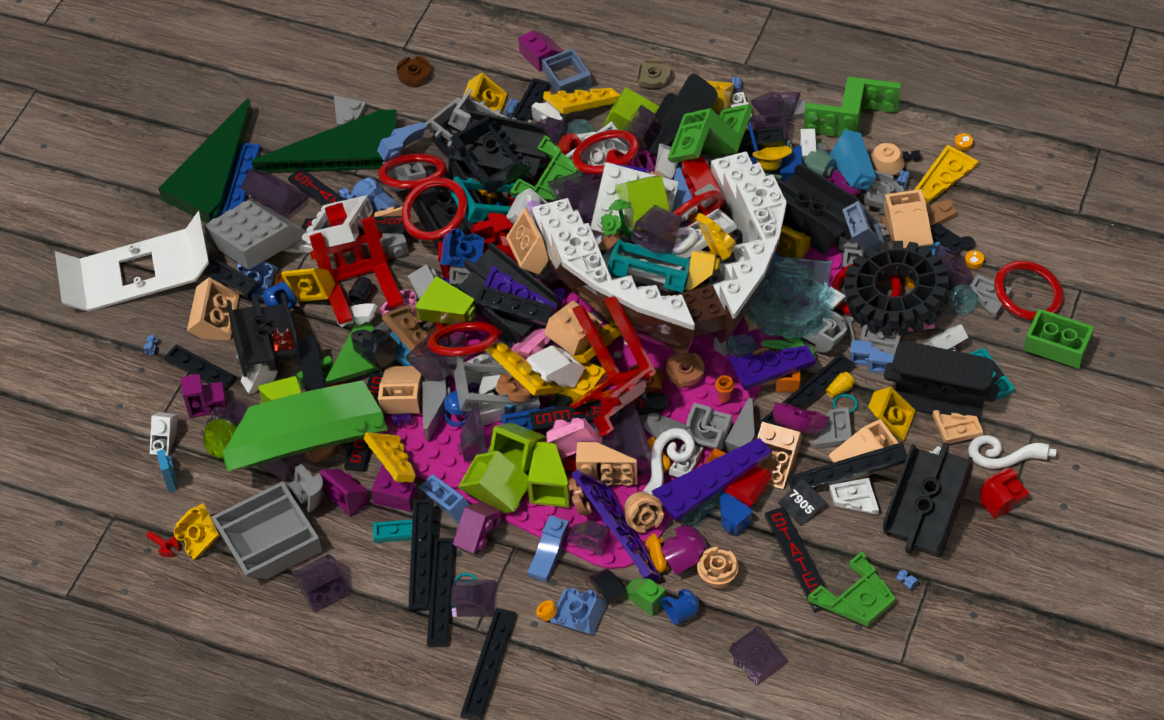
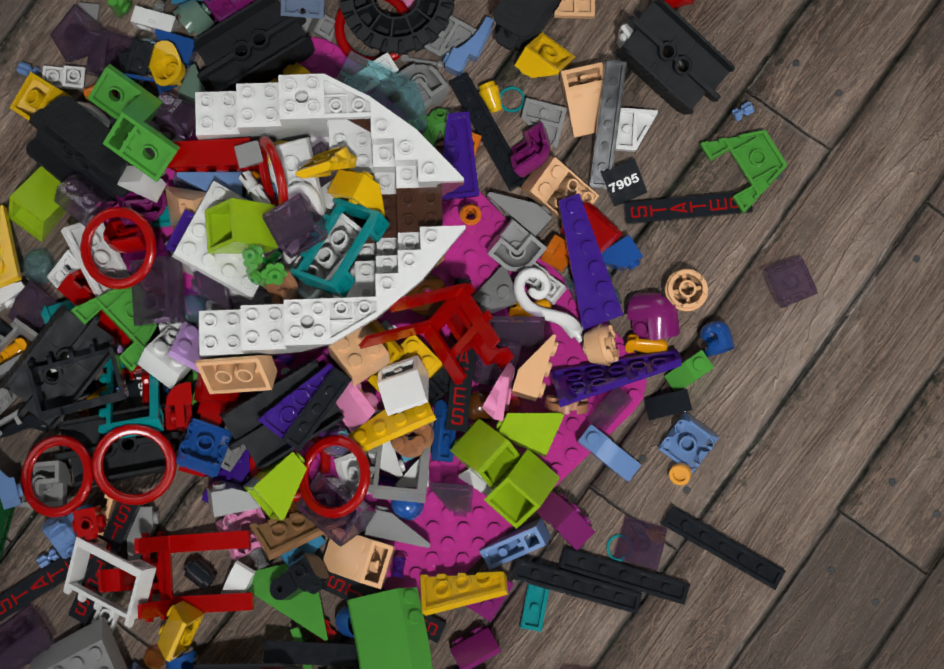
camera: 80 degrees left, 30 degrees up
(380, 197) = (89, 522): none -> red brick

